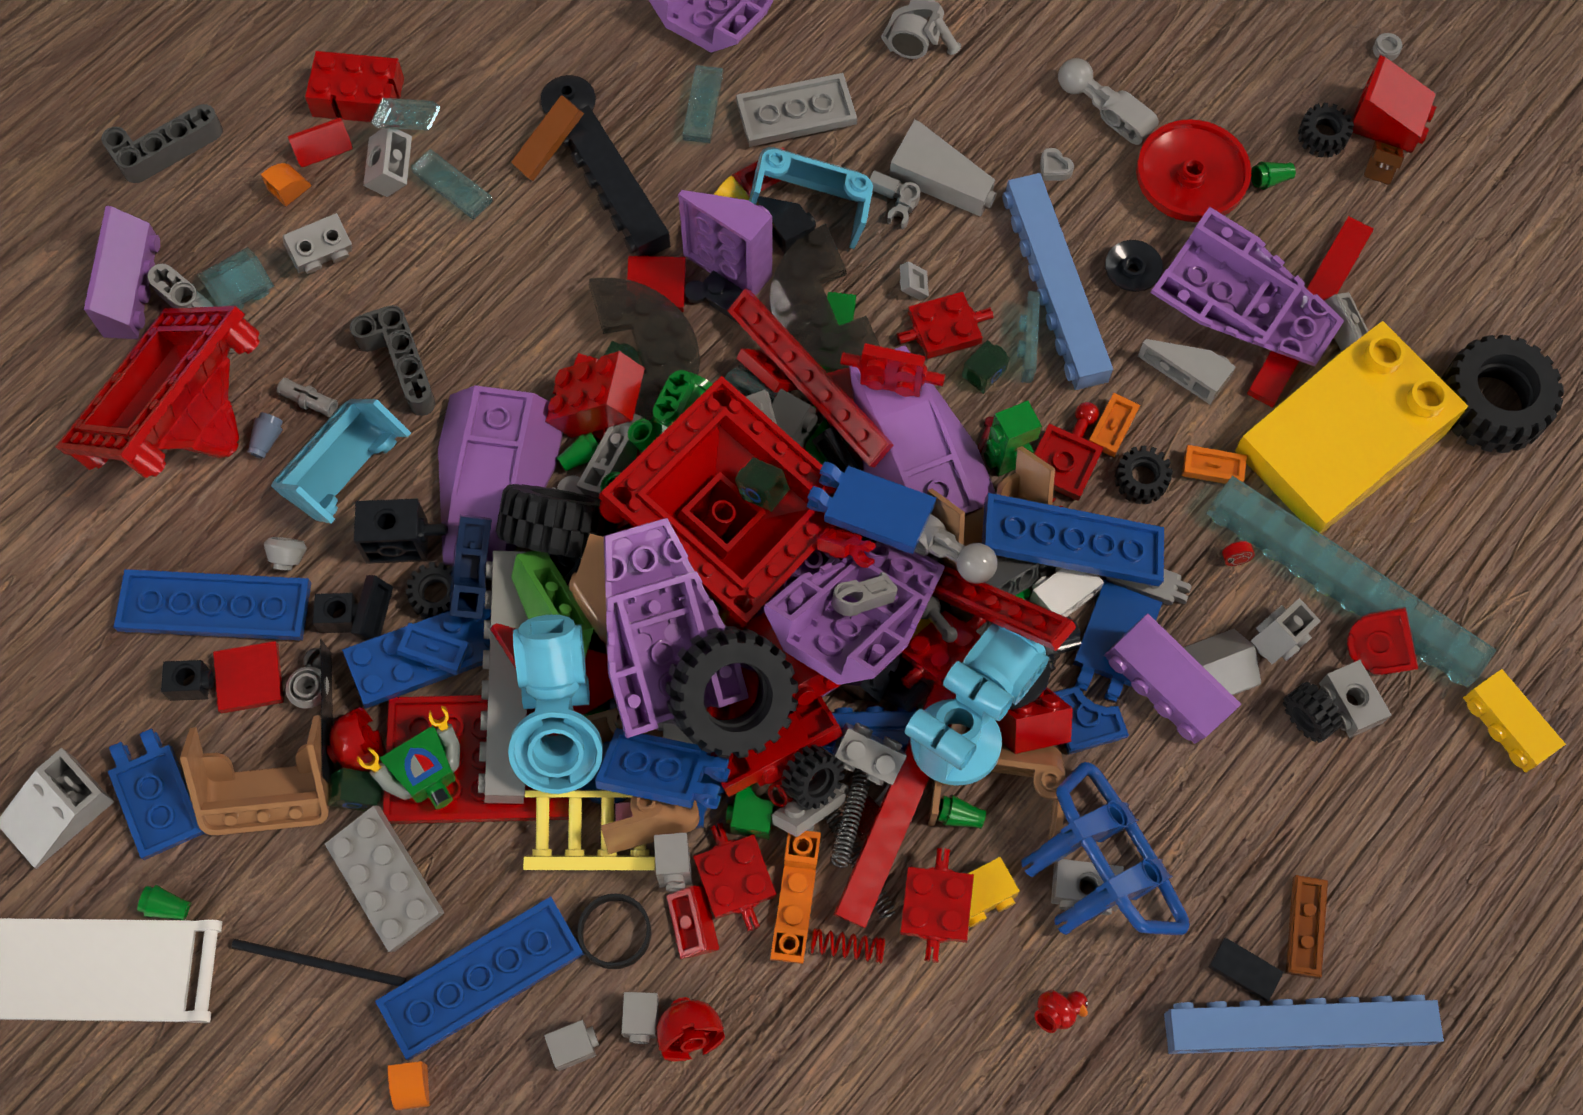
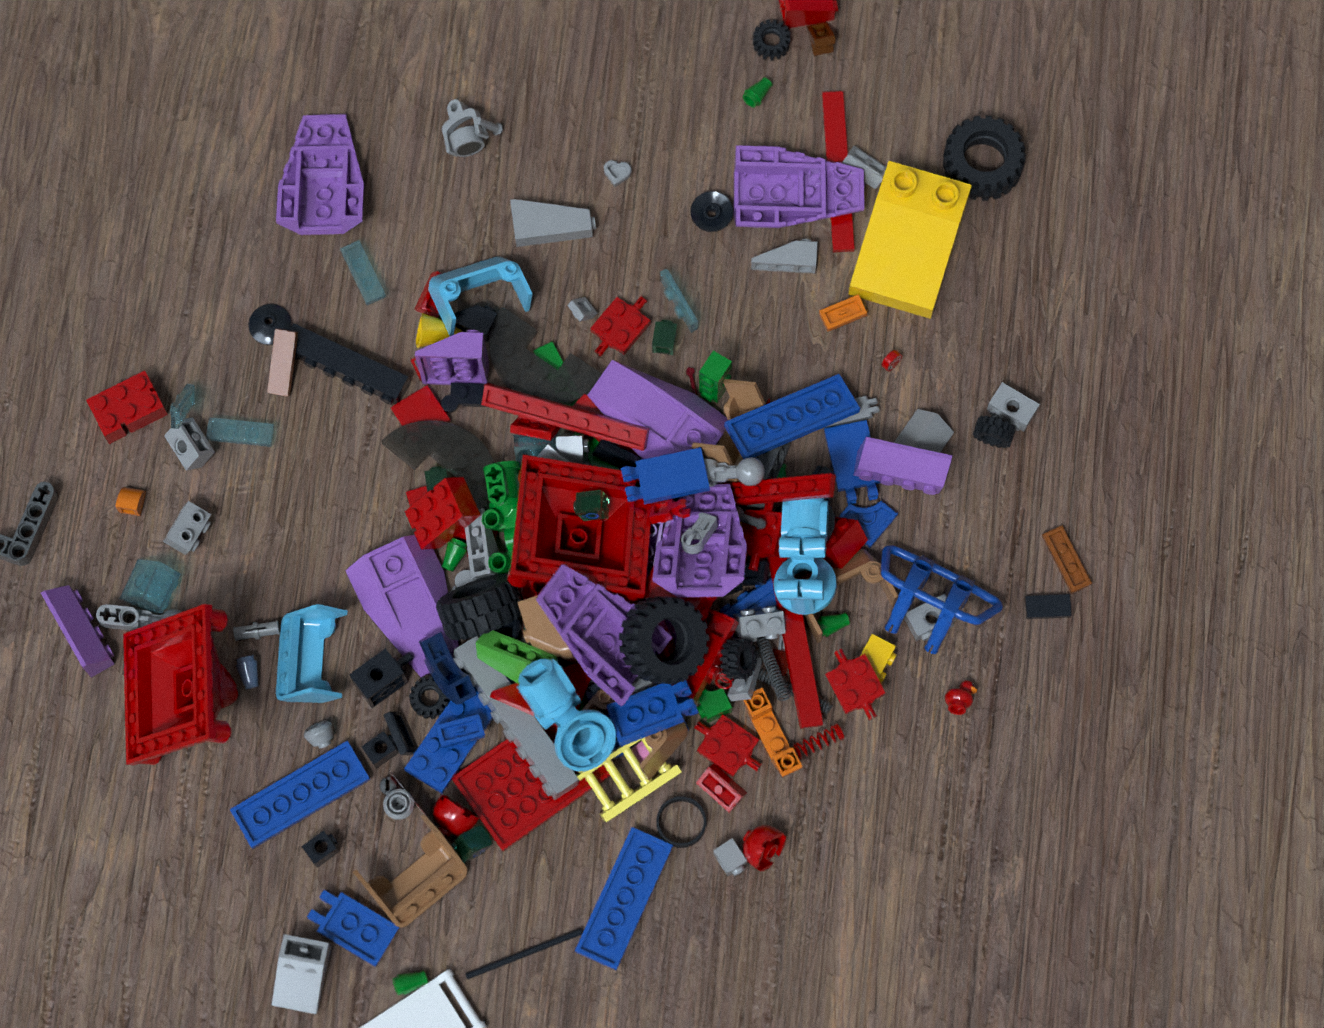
camera: 30 degrees left, 5 degrees up
(248, 677) = (354, 822): red tile -> none
(320, 142) = (132, 459): red slope -> none
(384, 878) = (527, 881): light grey plate -> none
(403, 360) = (298, 569): dark grey beam -> none
(409, 1085) = (627, 982): orange brick -> none
(420, 765) = (503, 802): torso -> none
(571, 1044) = (703, 899): light grey brick -> none
(672, 861) = (689, 760): light grey brick -> none
(796, 109) = (426, 238): light grey plate -> none
(892, 370) = (620, 384): red plate -> none
(906, 194) = (537, 253): light grey bar -> none
(1057, 282) = (670, 252): medium blue brick -> none
(1065, 590) = (805, 453): white brick -> none
(1070, 453) = (751, 362): red plate -> none
(1114, 424) = (766, 325): orange plate -> none
(1117, 109) = (631, 107): light grey beam -> none
(1147, 459) = (804, 334): black tyre -> none
(1193, 168) = (707, 122): red dish -> none
(1285, 631) = (949, 393): light grey brick -> none
(1303, 1026) = (1097, 618): medium blue brick -> none
(1347, 579) = (966, 336): clear light blue brick -> none
(1383, 642) = (1008, 362): red tile -> none
(1513, 721) = (1110, 362): yellow brick -> none

